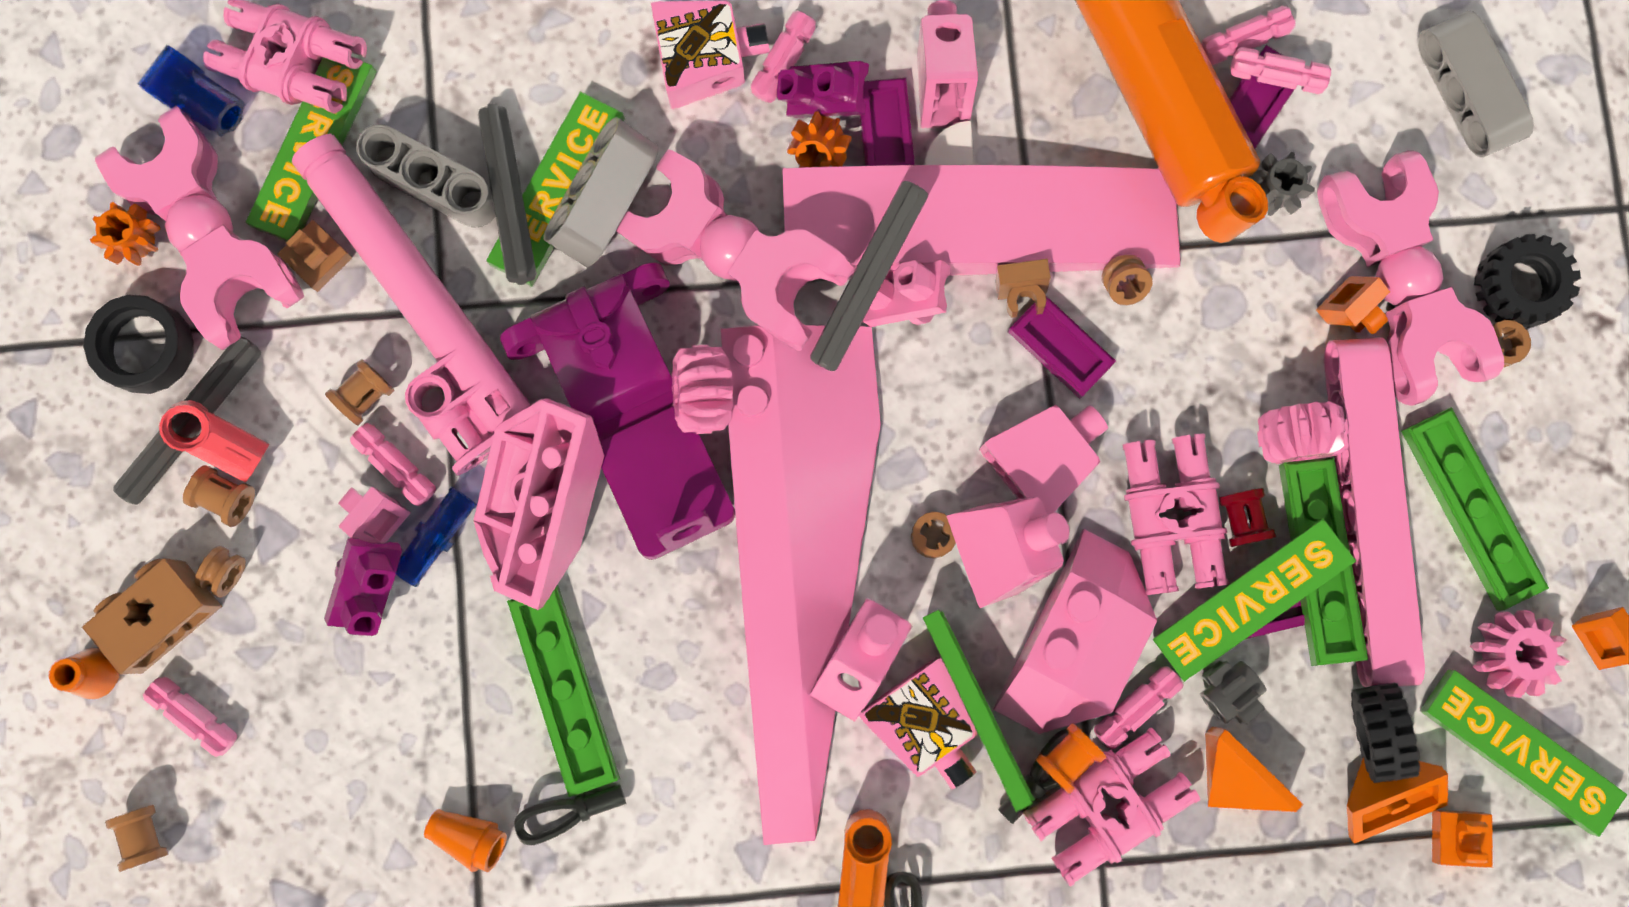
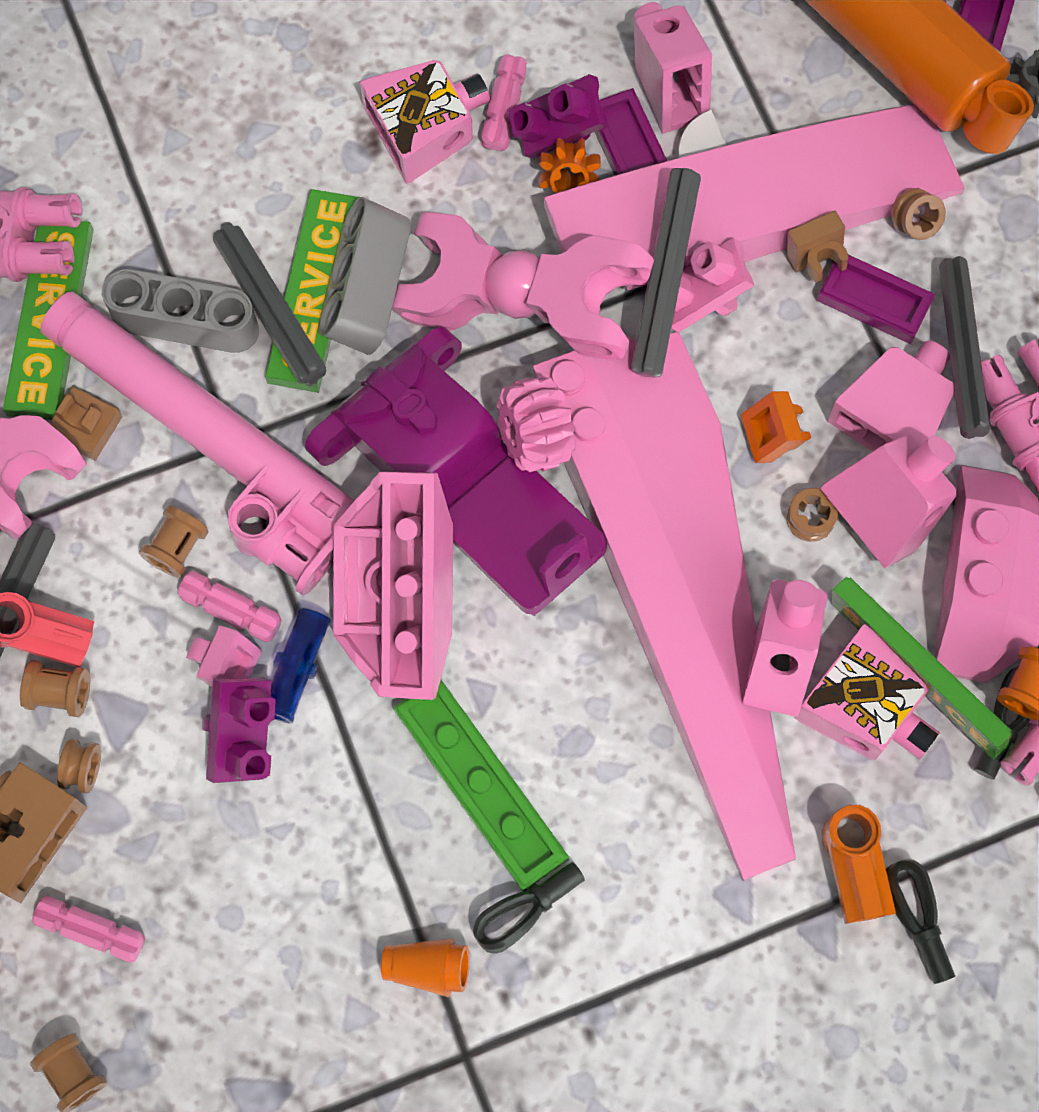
camera: 15 degrees left, 10 degrees down
(925, 445) = (773, 427): none -> orange tile
(1122, 424) = (964, 348): none -> dark grey axle

